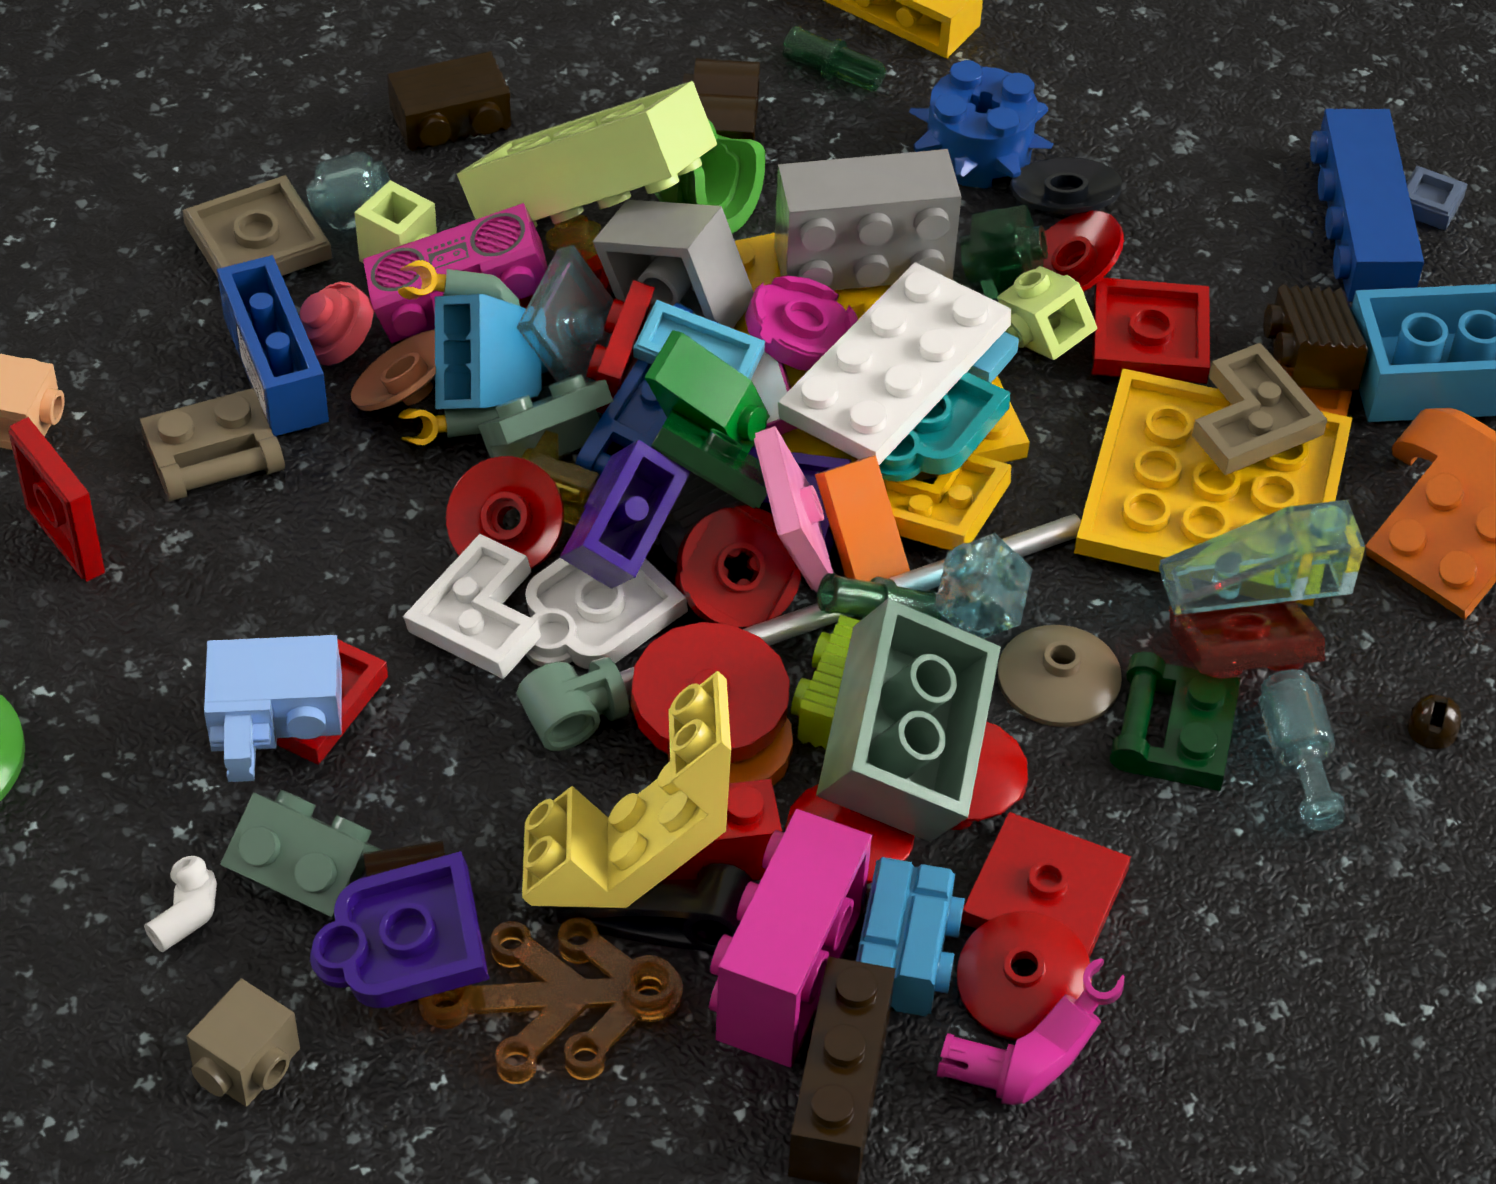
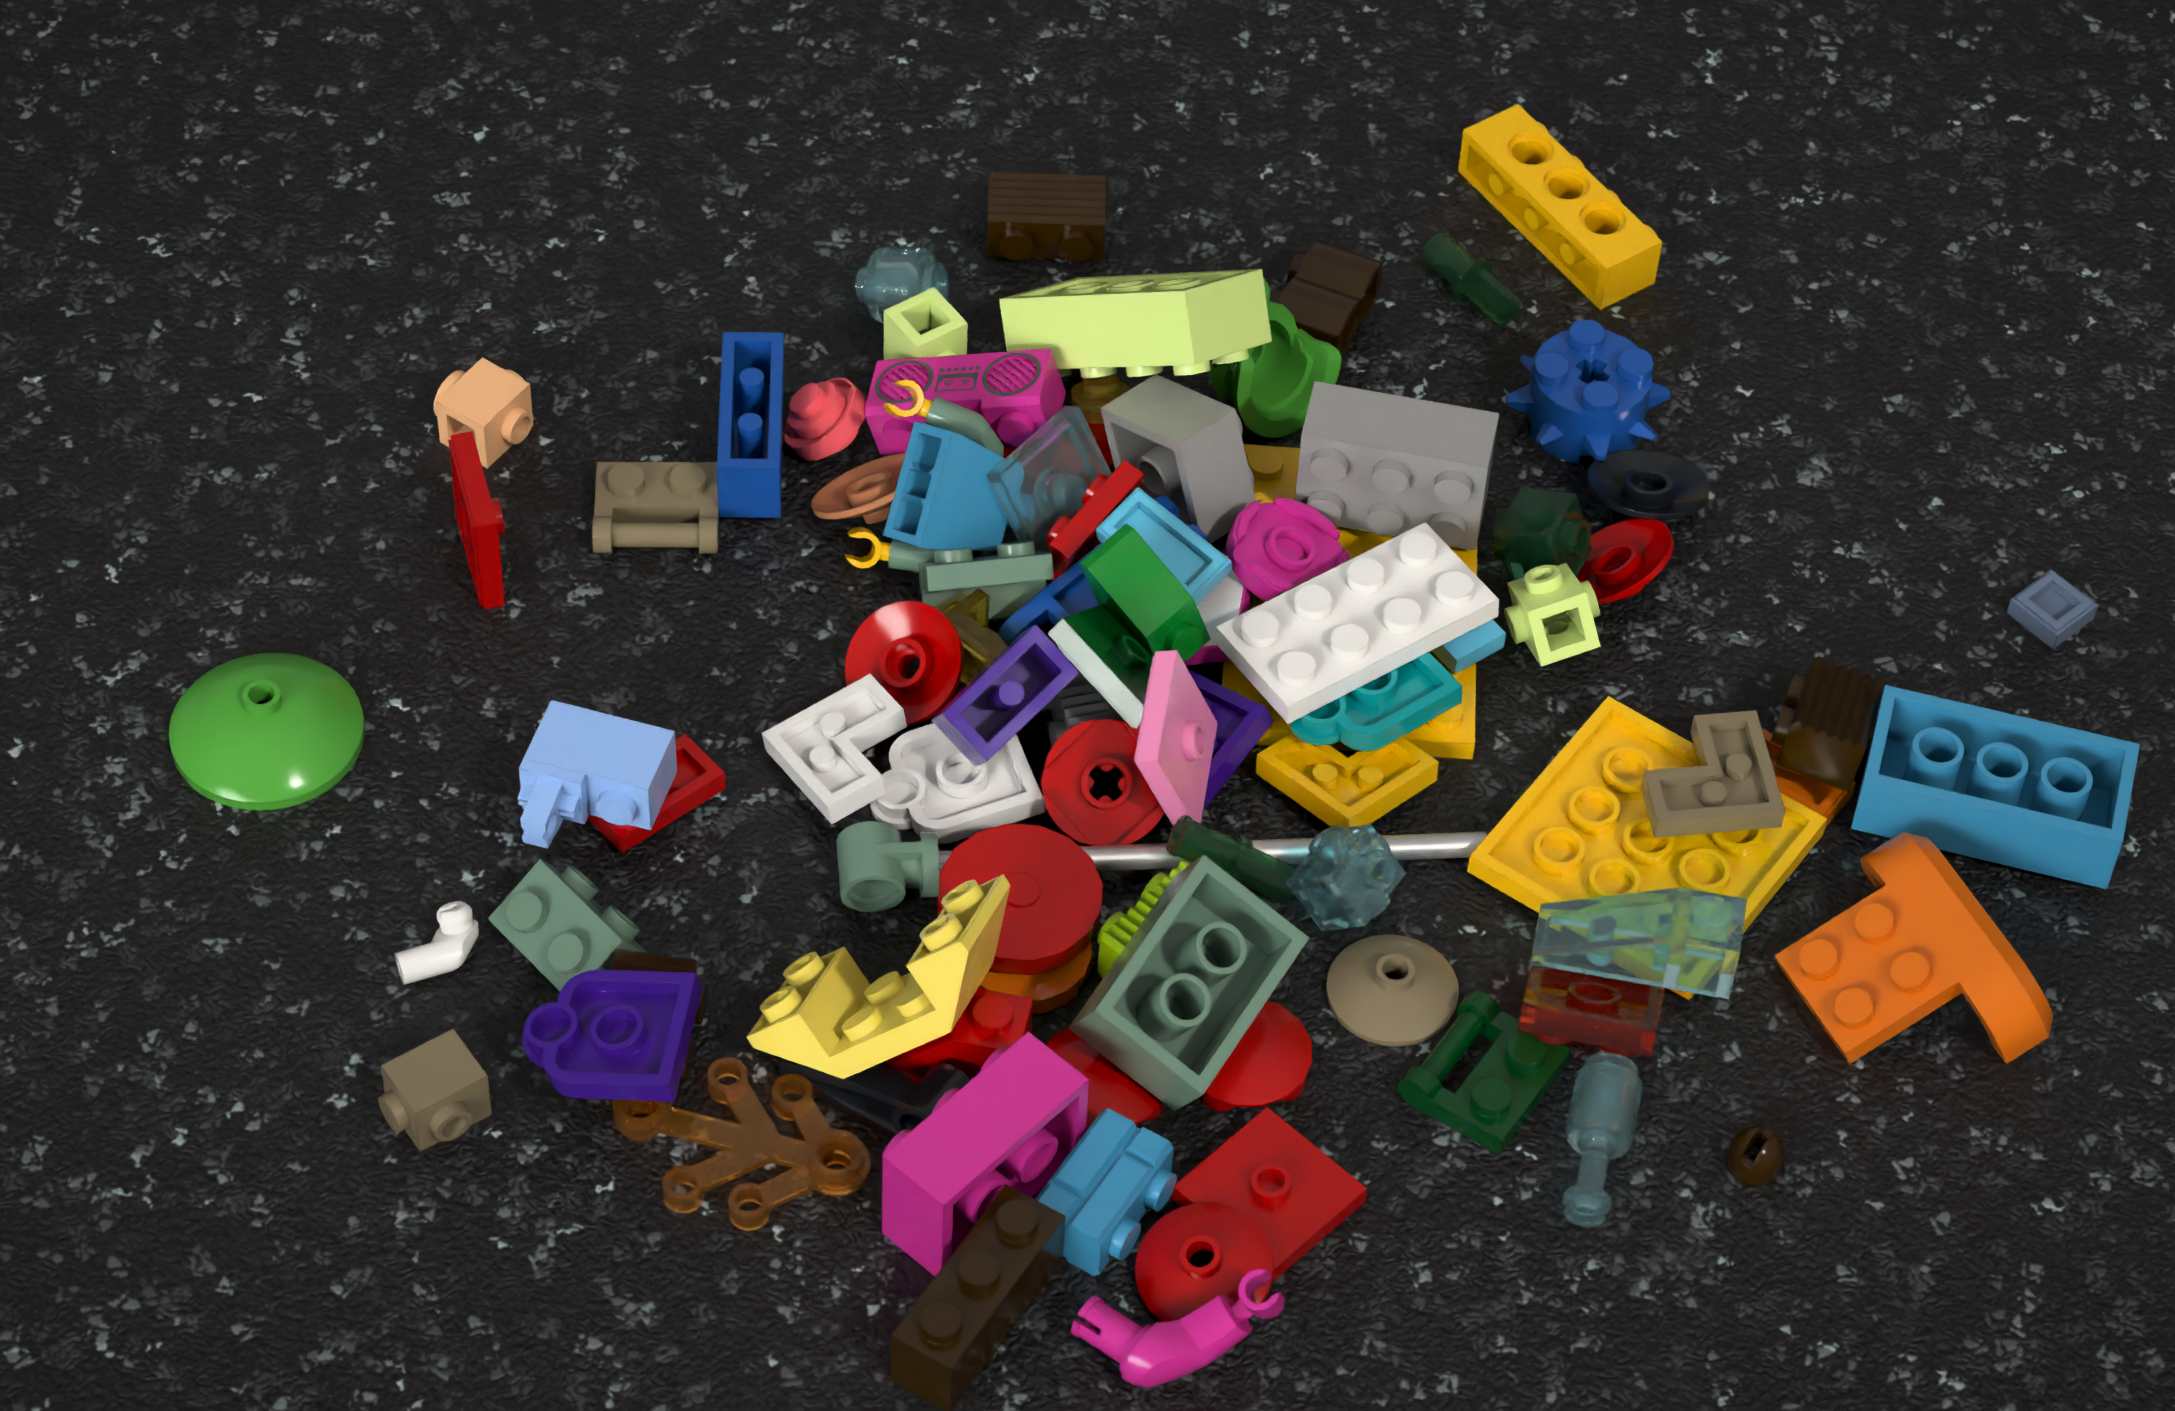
camera: 20 degrees right, 0 degrees up
(258, 224) = (796, 295): dark tan plate -> none
(862, 520) = (1253, 773): orange tile -> none
(1151, 329) = (1663, 662): red plate -> none
(1366, 201) = (1969, 594): blue brick -> none

